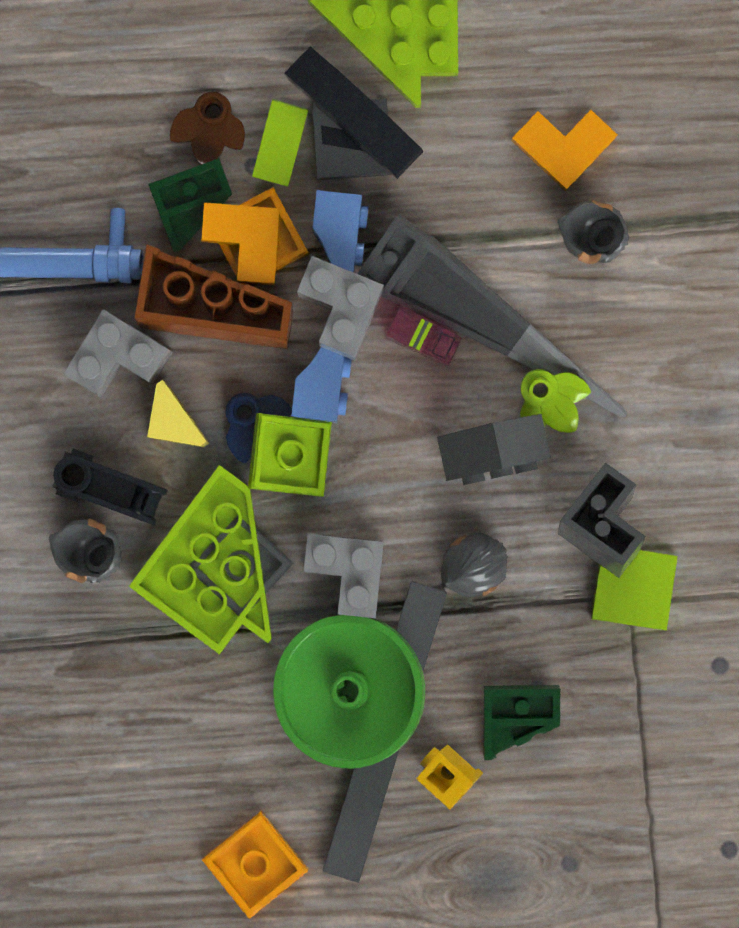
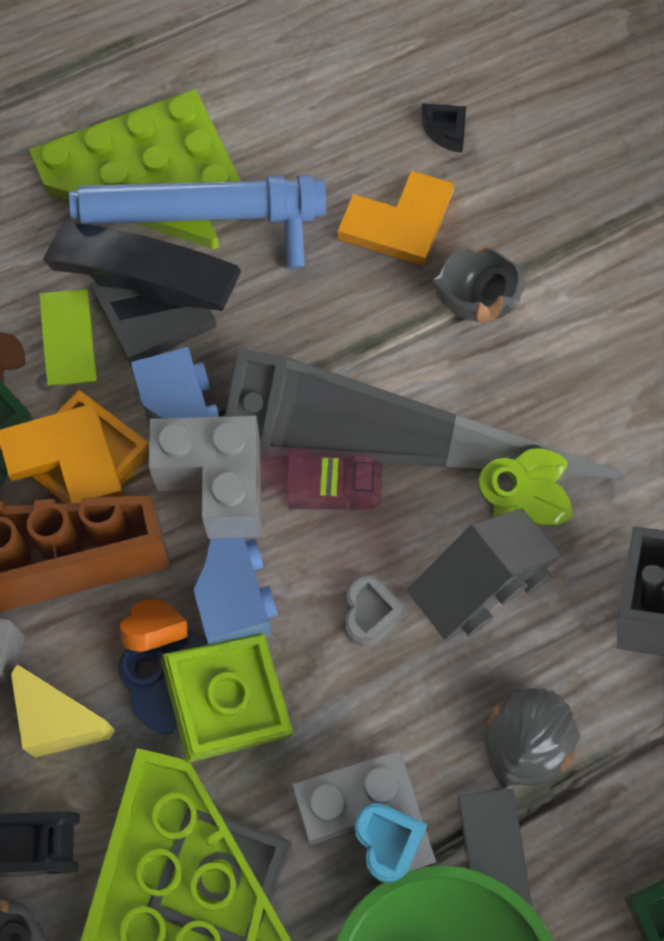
camera: 20 degrees left, 20 degrees down
(259, 387) = (152, 626): none -> orange tile
(351, 595) = (389, 840): none -> medium azure tile
(410, 436) = (371, 611): none -> light grey tile
(473, 94) = (272, 199): none -> medium blue cylinder
(637, 76) = (445, 125): none -> black tile

